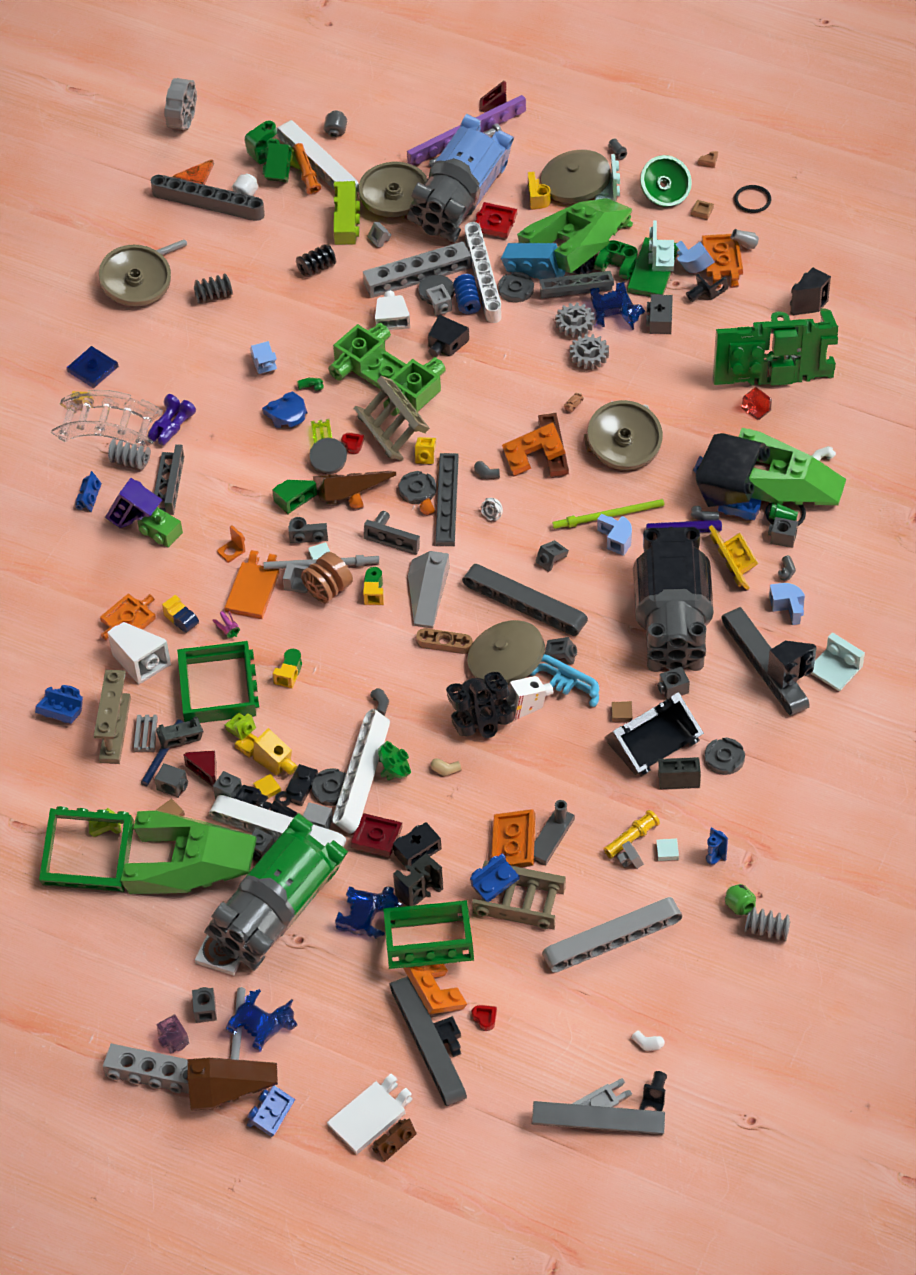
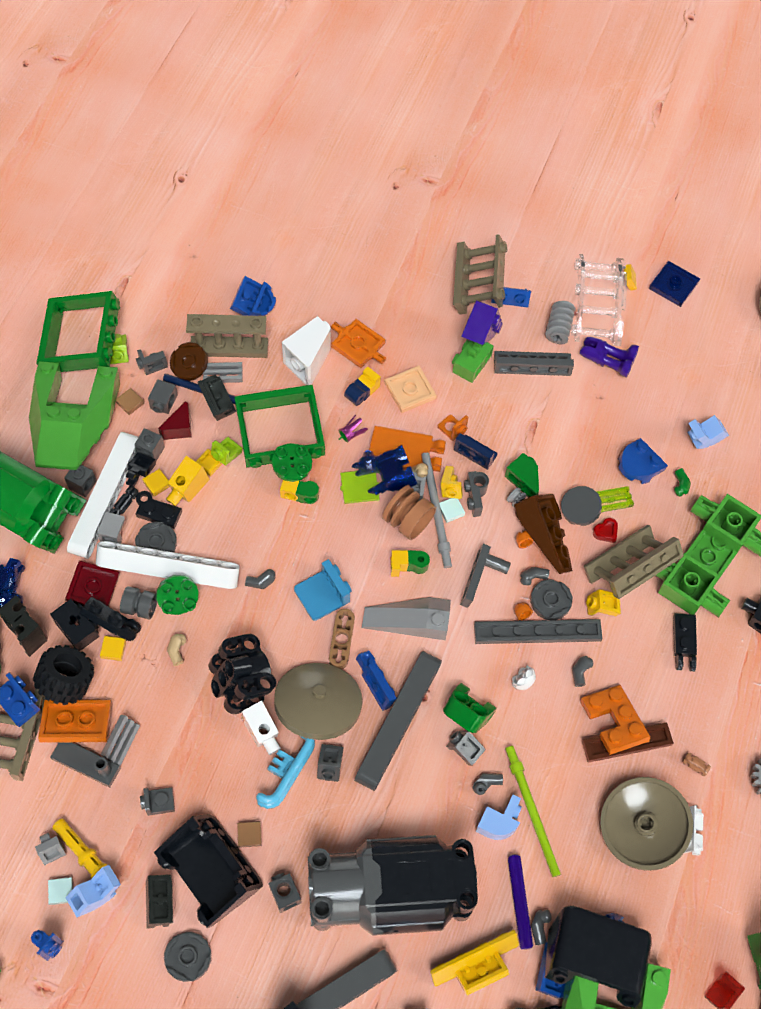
camera: 80 degrees right, 10 degrees up
(72, 527) = (464, 269): none -> dark tan fence
(128, 794) = (151, 363): none -> dark grey bracket
(131, 758) = (189, 361): none -> reddish brown tile
(185, 579) = (410, 389): none -> light nougat tile
(264, 528) = (475, 451): none -> dark blue bracket
(264, 665) = (301, 461): none -> green plate
(280, 569) = (421, 469): none -> tan arm
(280, 589) = (389, 467): none -> clear blue animal
(287, 624) = (356, 487): none -> lime piece
(297, 550) = (449, 484): none -> yellow bracket
(314, 503) = (516, 496): none -> light grey bush
(391, 497) = (532, 573): none -> dark grey arm
(397, 649) = (323, 591): none -> dark azure bracket
(398, 793) = (136, 602): none -> dark grey wheel
(414, 814) = (110, 619): none -> black hinge
(441, 818) = (112, 648): none -> yellow tile
(464, 398) = (685, 640): none -> black hinge
(471, 843) = (58, 686): none -> black tyre
(488, 613) = (376, 681): none -> blue hinge
(520, 548) = (467, 711): none -> green piece
(528, 804) = (122, 742): none -> light grey tile
(581, 544) = (485, 781): none -> dark grey arm
(590, 778) = (157, 801): none -> dark grey bracket
(672, 821) = (93, 893): none -> light blue brick

